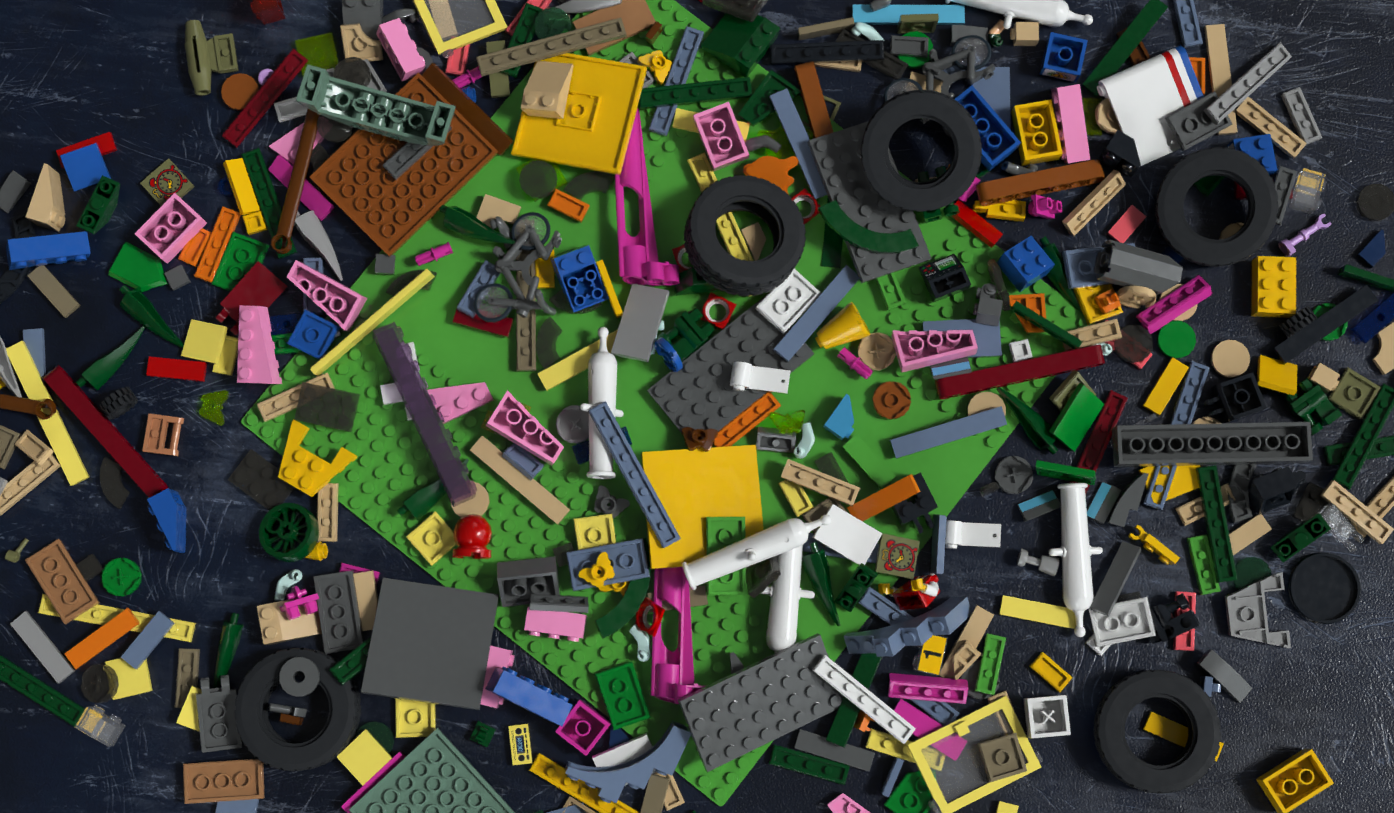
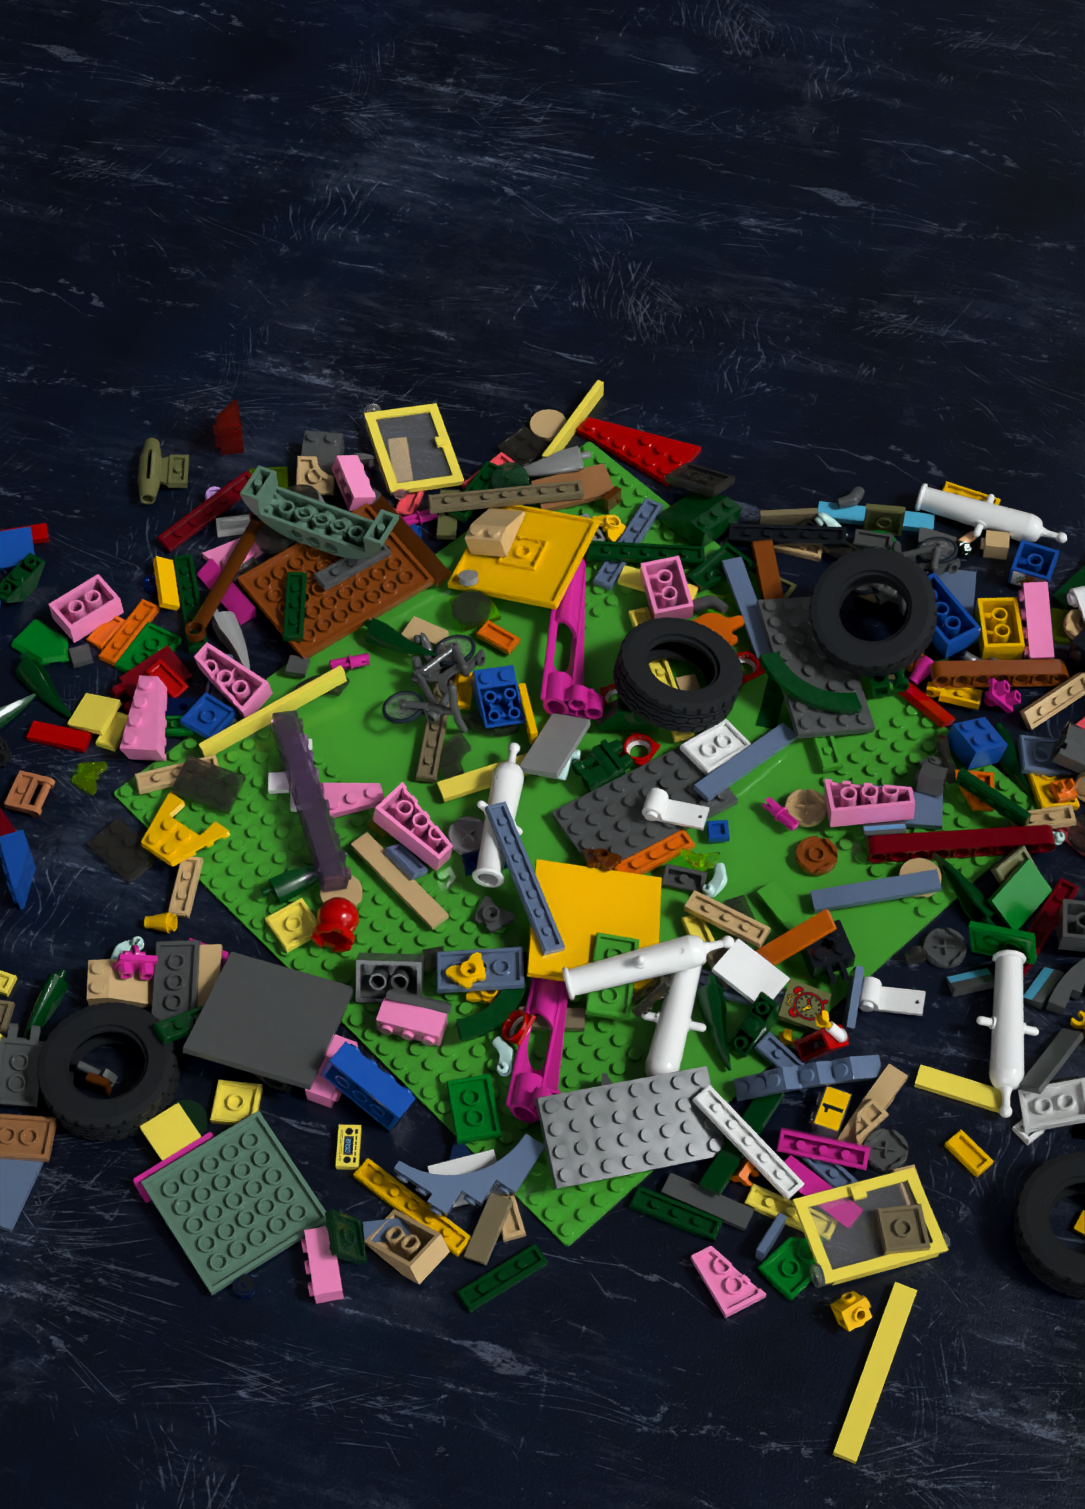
camera: 10 degrees right, 25 degrees down
(166, 181) = (89, 568): olive tile -> none
(239, 91) = (182, 503): dark orange tile -> none
(254, 223) = (172, 618): yellow tile -> none
(265, 297) = (172, 681): none -> red tile
(281, 534) = (140, 896): dark green piece -> none
(288, 672) = (115, 1017): dark grey tile -> none
(371, 202) = (295, 606): none -> dark green tile
(483, 734) = (308, 1130): dark green tile -> none
(486, 275) = (374, 708): sand blue tile -> none
(499, 328) = (380, 726): dark red tile -> none
(530, 147) = (468, 577): none -> light grey tile
(583, 727) = (423, 1133): dark pink brick -> none
(589, 182) = (523, 620): clear smoke tile -> none
(594, 531) = (471, 935): light yellow tile -> none
(670, 356) = (580, 776): blue tile -> none
(800, 387) = (718, 831): none -> blue tile
(841, 420) = (757, 864): dark azure slope -> none
(843, 328) = (771, 777): yellow cone -> none
(945, 277) = (888, 747): black slope -> none
(990, 664) = (898, 1132): bright green tile -> none
(1020, 350) = (962, 822): white tile -> none
(1045, 564) = (972, 1038): light grey piece -> none
(1047, 716) = (959, 1193): white brick -> none

